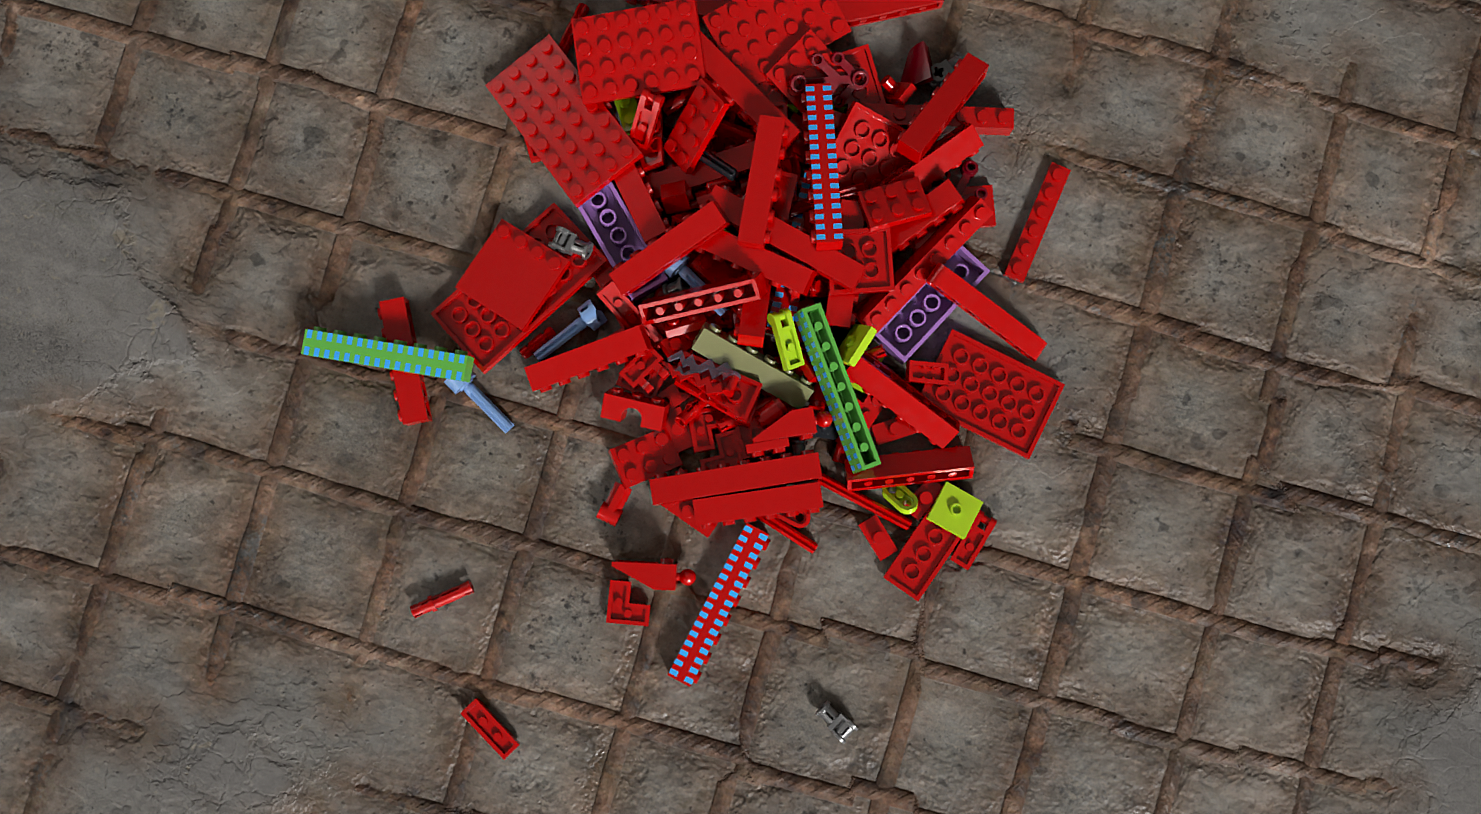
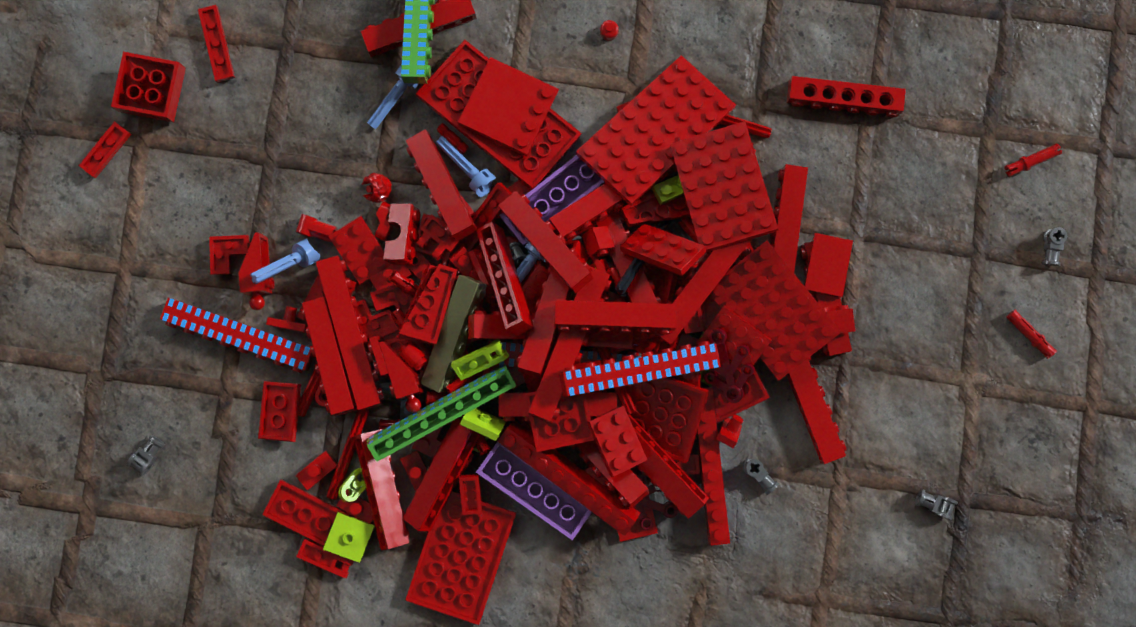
camera: 85 degrees right, 0 degrees up
(389, 588) = (216, 43): none -> red plate
(427, 669) = (148, 87): none -> red slope
(432, 603) = (209, 84): red pin -> none
(445, 158) = (609, 30): none -> red piece
(569, 243) = (542, 151): flat silver connector -> none
(579, 428) = (379, 187): none -> red piece
(622, 427) = (384, 228): none -> red piece
(641, 521) = (301, 254): none -> medium blue piece
(646, 118) = (664, 202): red plate -> none
(696, 369) = (437, 281): piece -> none
(711, 546) = (288, 321): none -> red tile
(809, 569) = (279, 411): none -> red tile
(918, 65) = (757, 448): dark red slope -> none
(942, 107) = (716, 474): red brick -> none
(986, 311) = (532, 541): red beam -> none
(1037, 222) = (629, 580): red plate -> none

